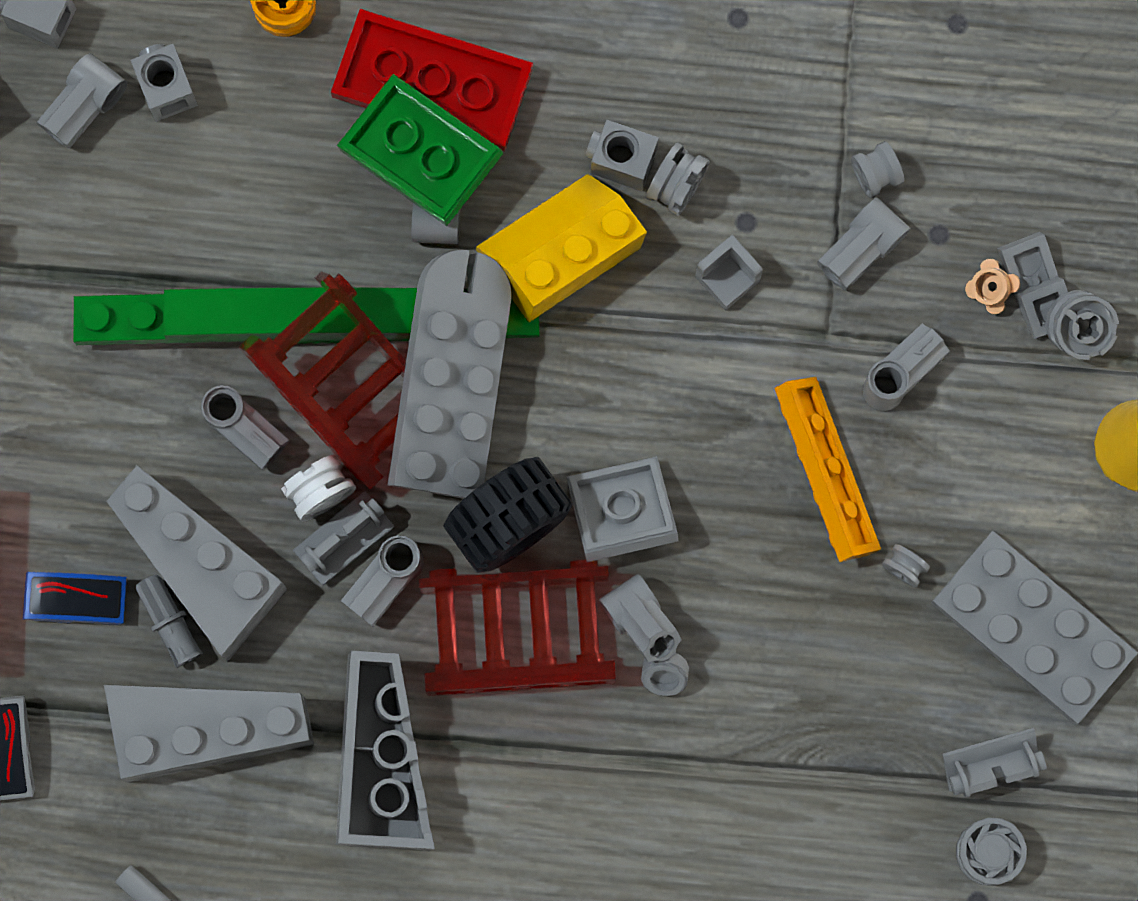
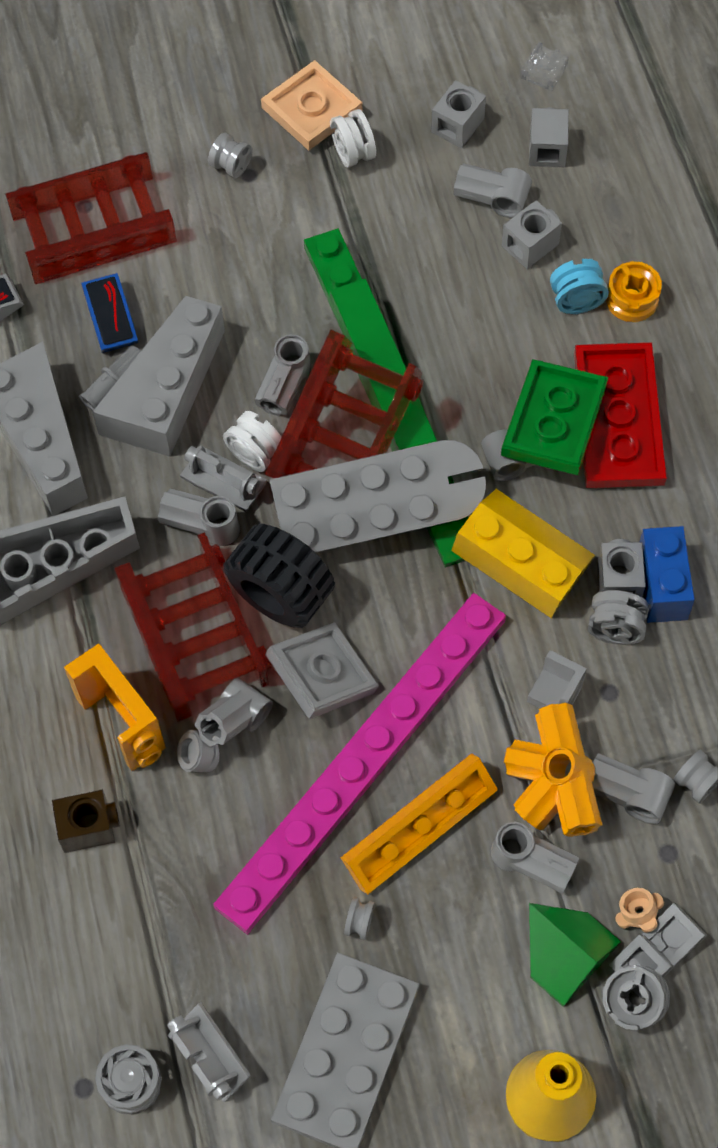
camera: 70 degrees right, 15 degrees down
(258, 58) = (579, 286): none -> medium azure wheel
(592, 727) = (97, 676): none -> light orange panel
(646, 107) = (667, 574): none -> blue brick
(697, 834) = (70, 810): none -> dark brown brick
(732, 503) = (358, 764): none -> dark pink plate
(841, 322) = (546, 766): none -> light orange piece
(1010, 371) = (566, 949): none -> green slope

